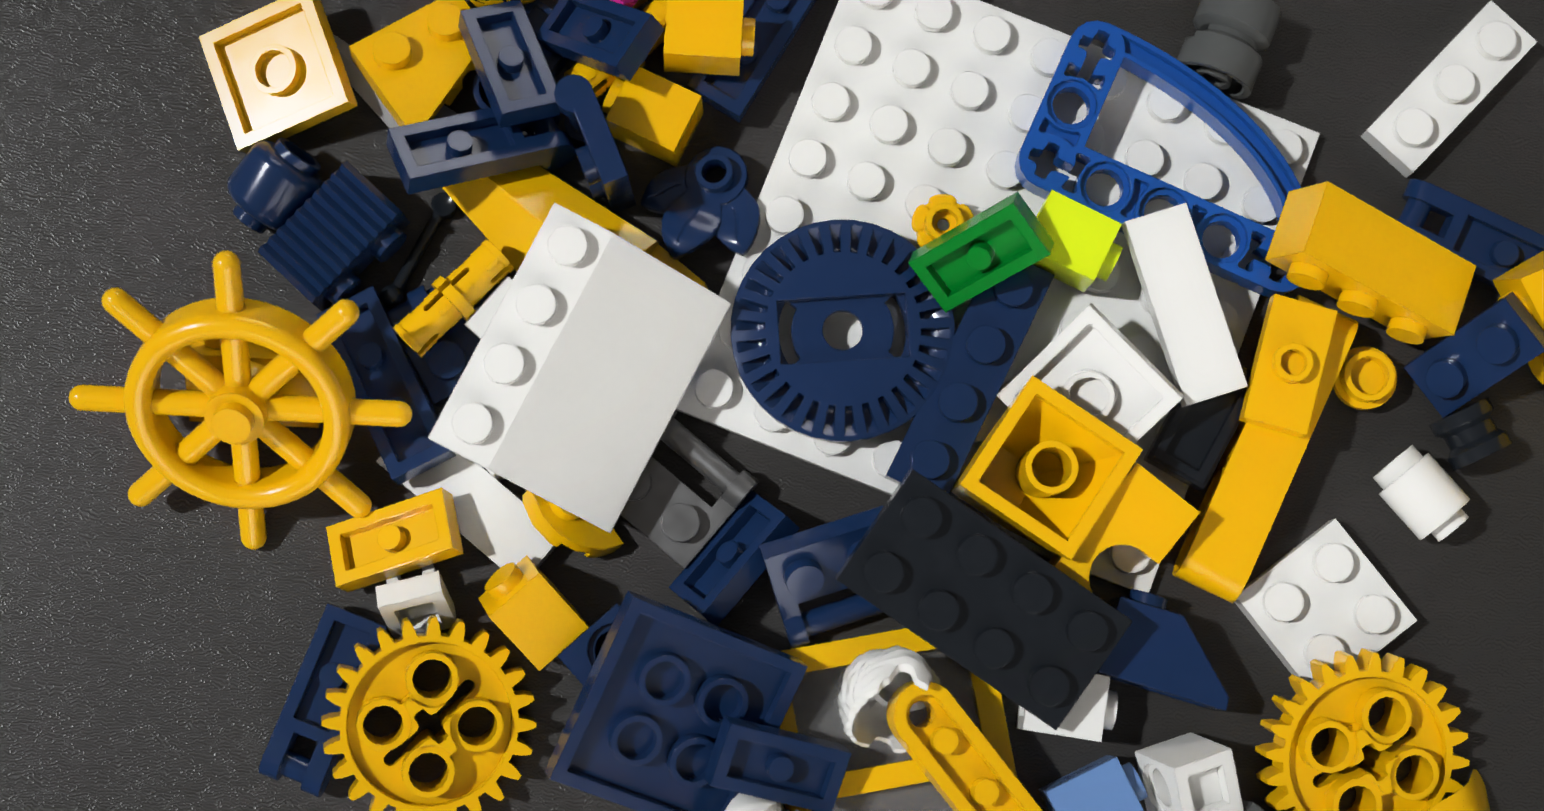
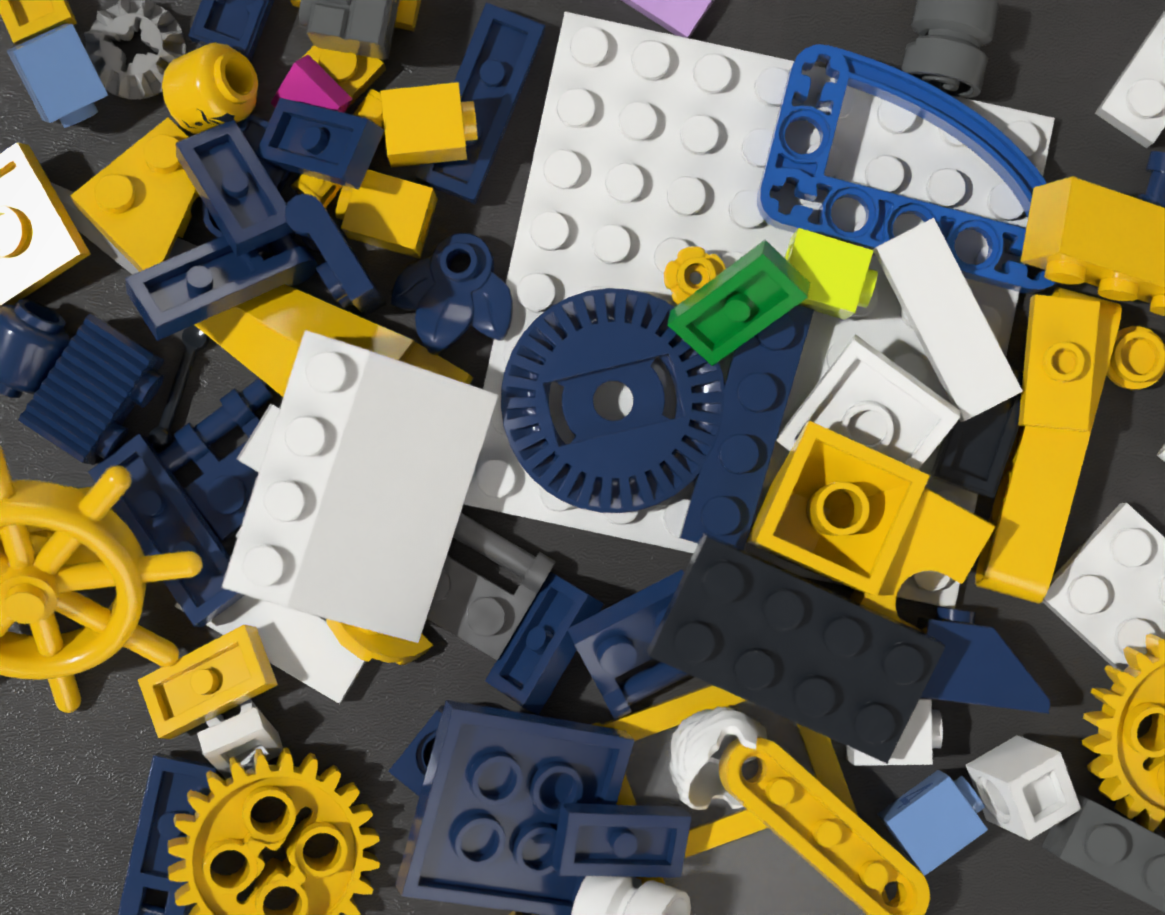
camera: 10 degrees left, 5 degrees up
(453, 298) = (221, 434): yellow pin -> none
(531, 611) = (355, 730): yellow brick -> none

